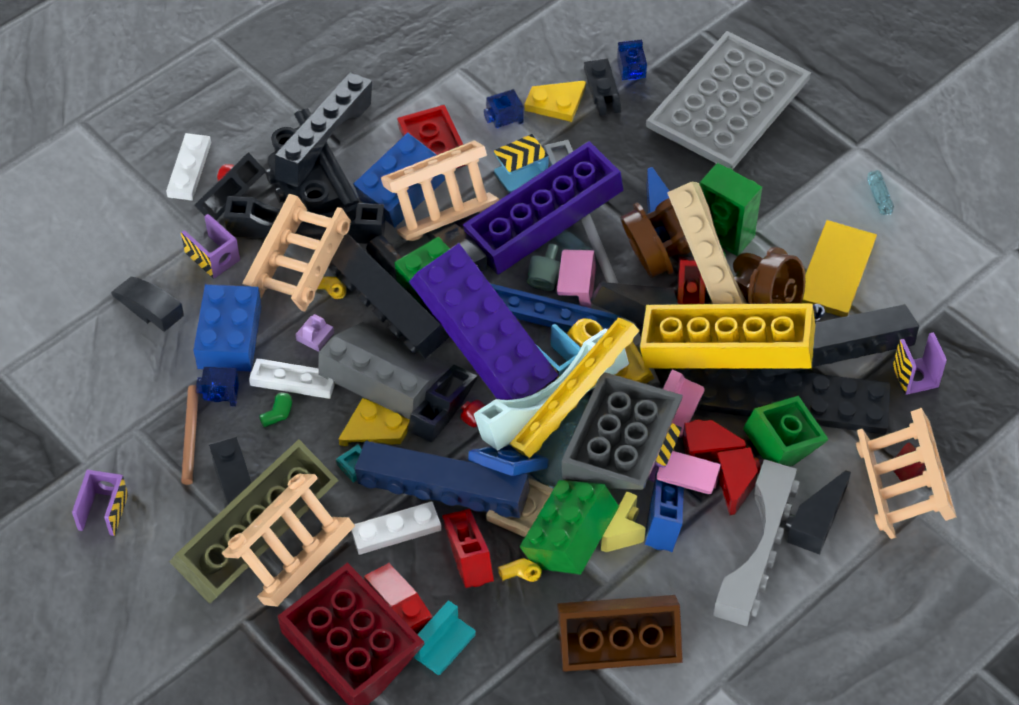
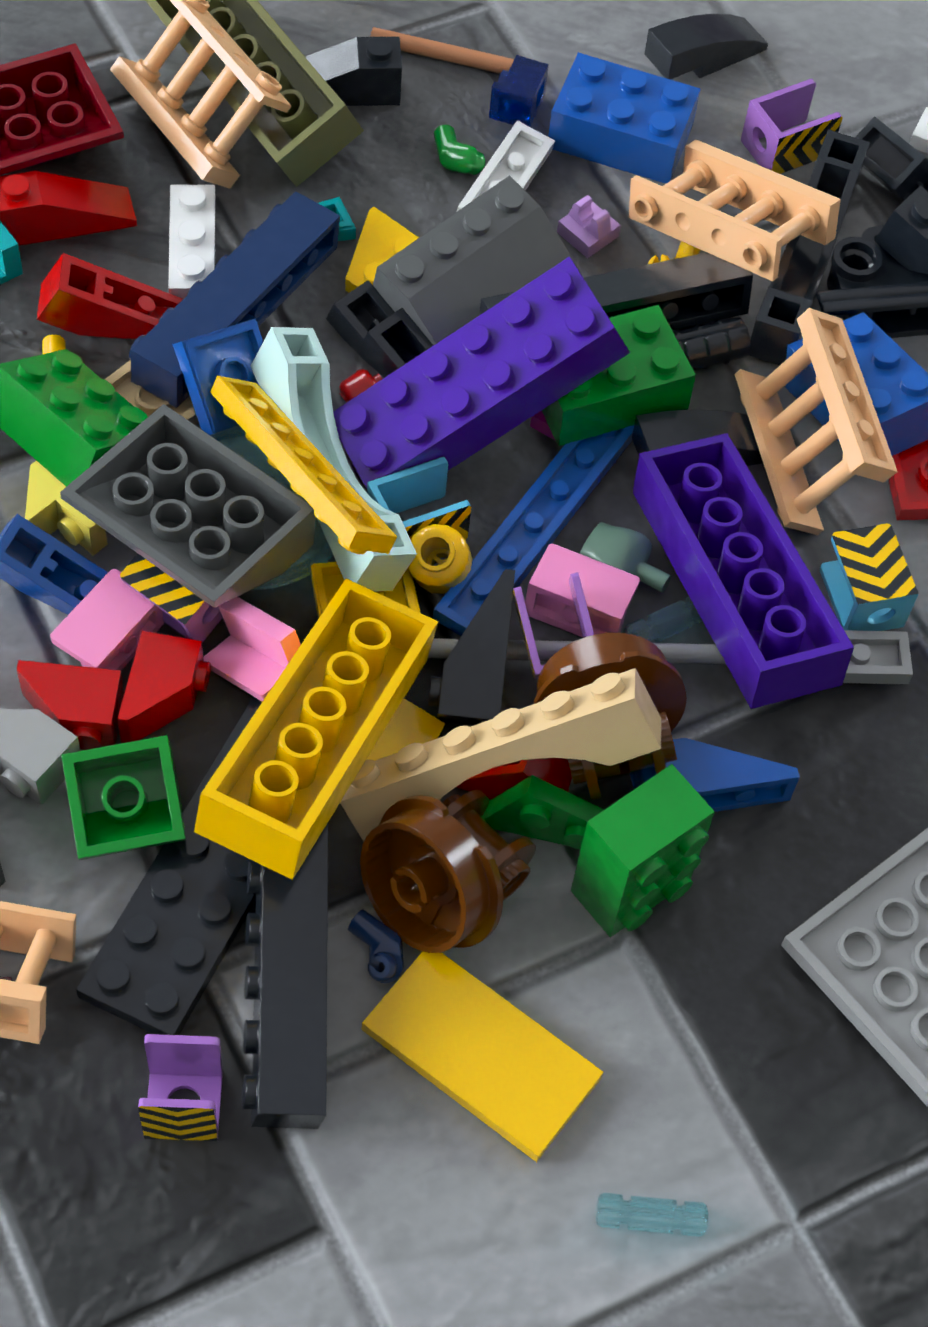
camera: 100 degrees right, 5 degrees up
(618, 257) = (582, 614): none -> medium lavender piece

